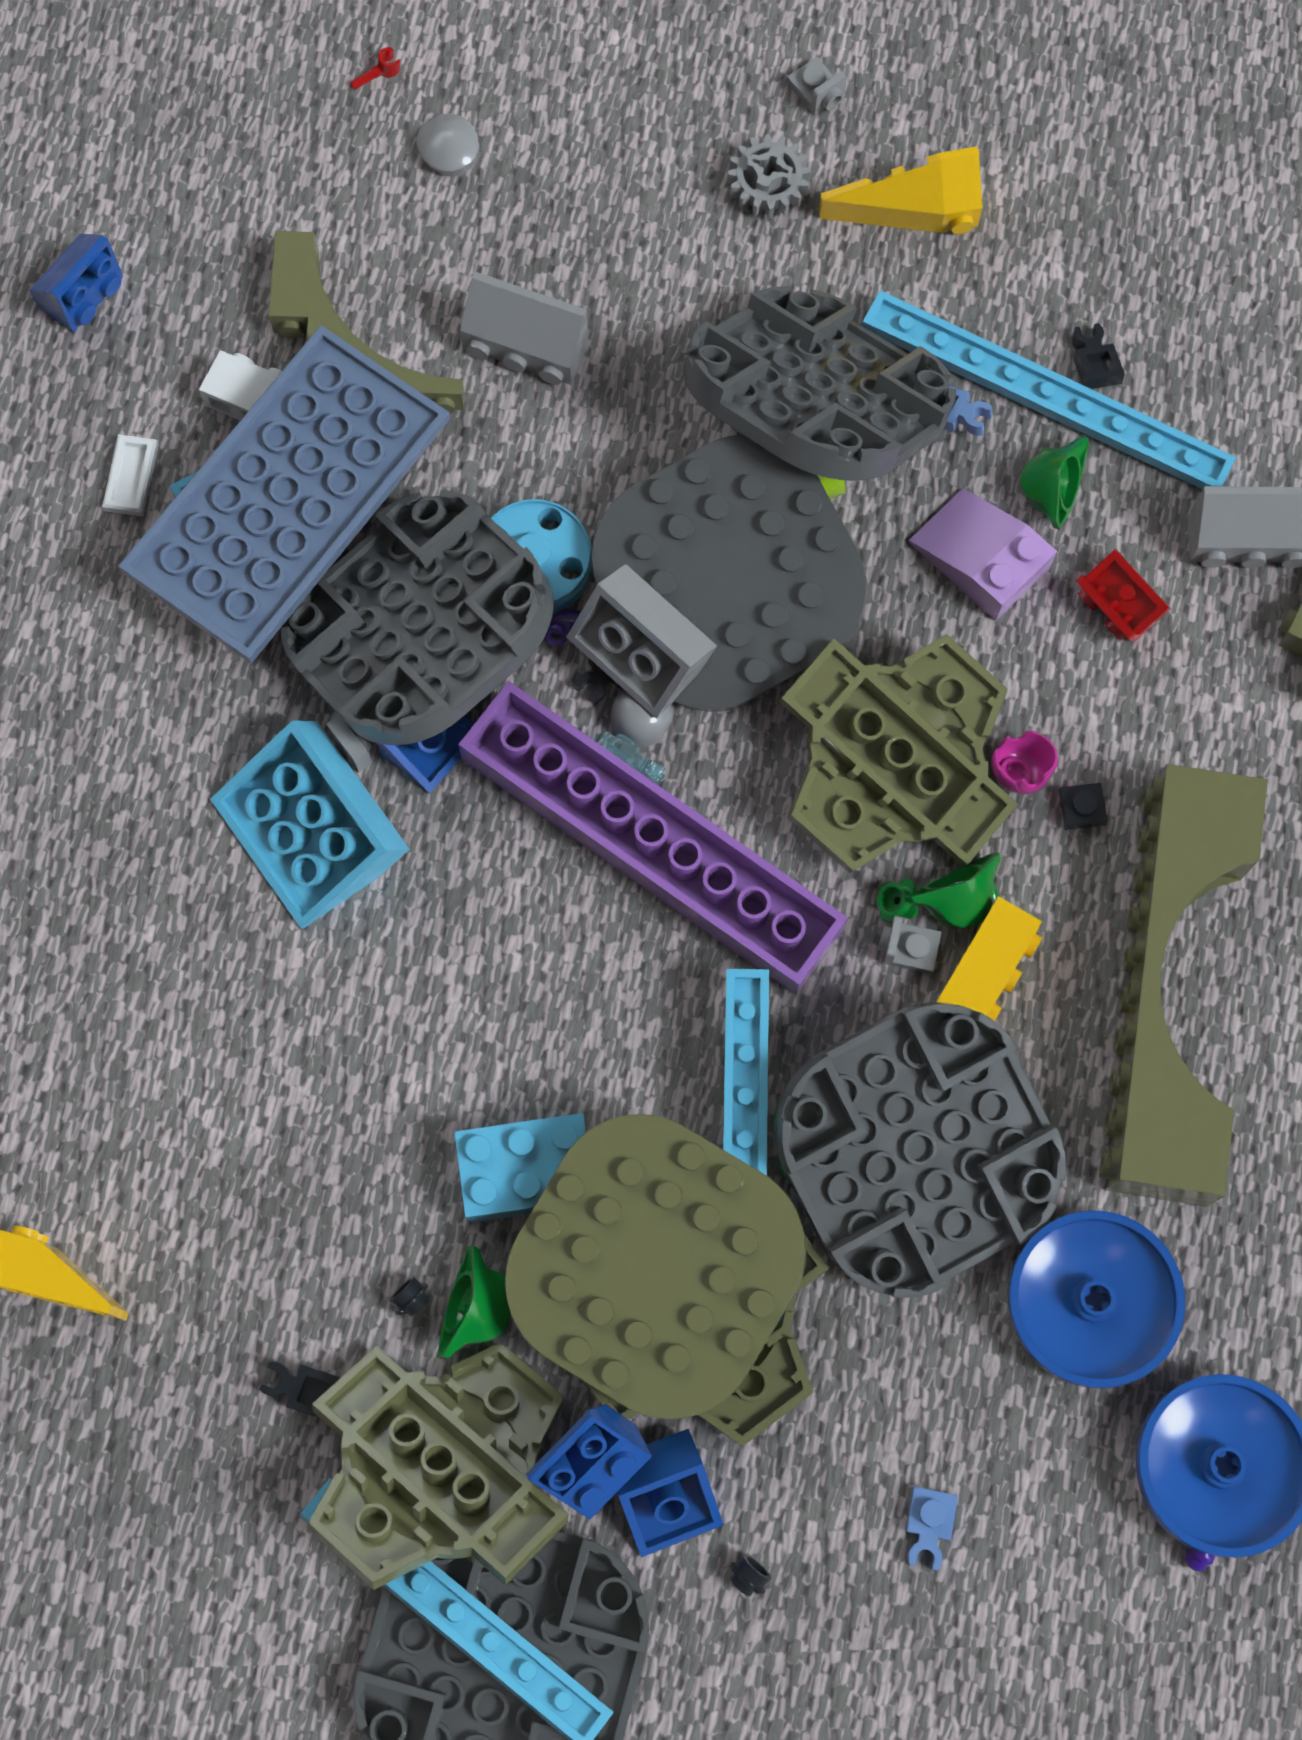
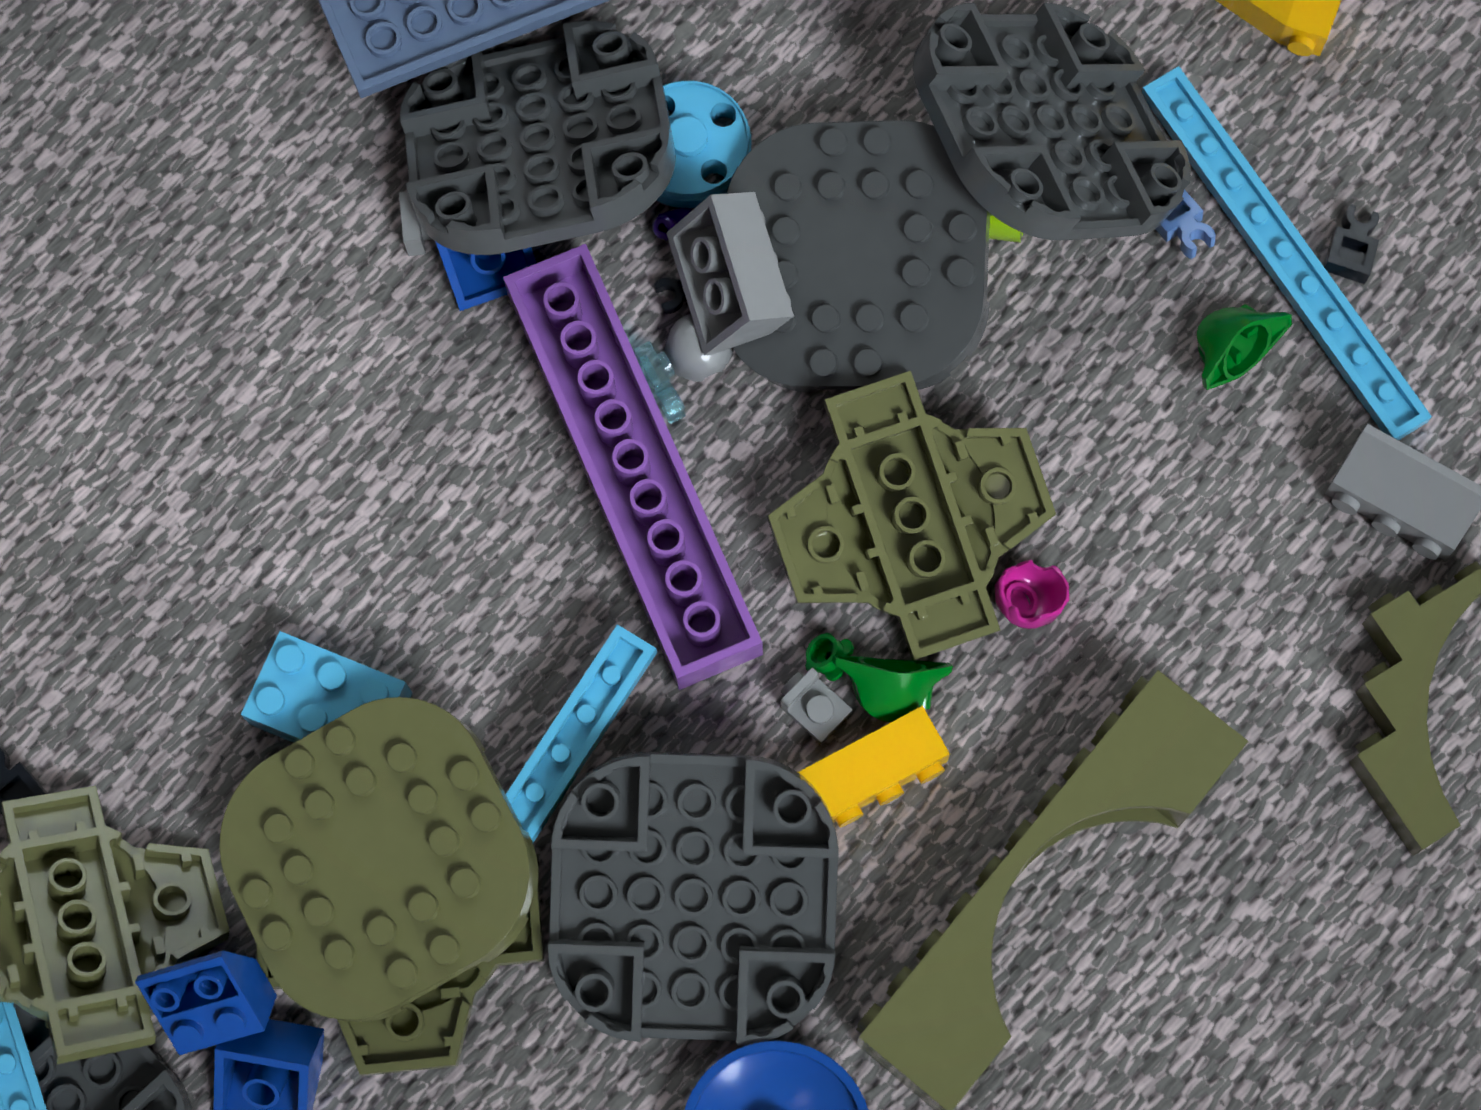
camera: 35 degrees right, 0 degrees up
(308, 822) = (333, 275): medium azure slope -> none
(410, 1297) = (154, 760): black plate -> none
(475, 1307) = (202, 803): green hat -> none
(984, 551) = (1123, 373): lavender slope -> none
(1083, 806) = (1066, 669): black plate -> none
(1122, 596) = (1230, 490): red bracket -> none

